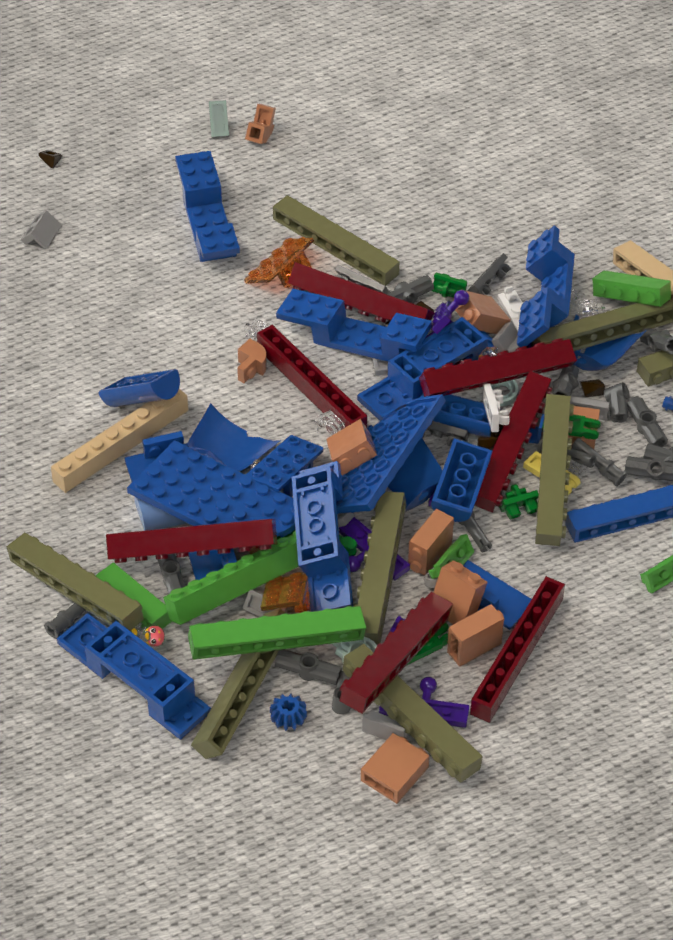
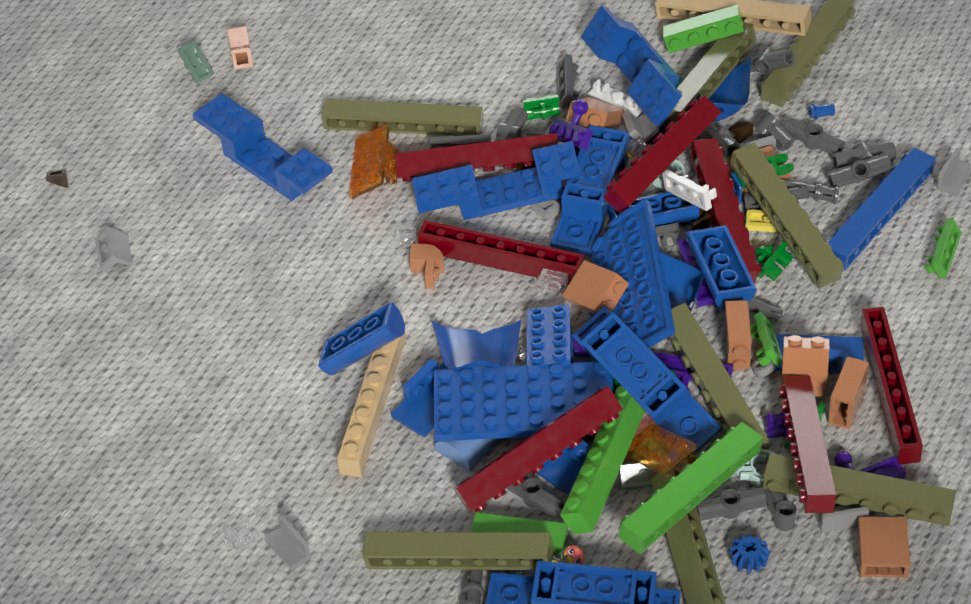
camera: 30 degrees left, 0 degrees up
(590, 307) = (682, 64): clear bracket -> none

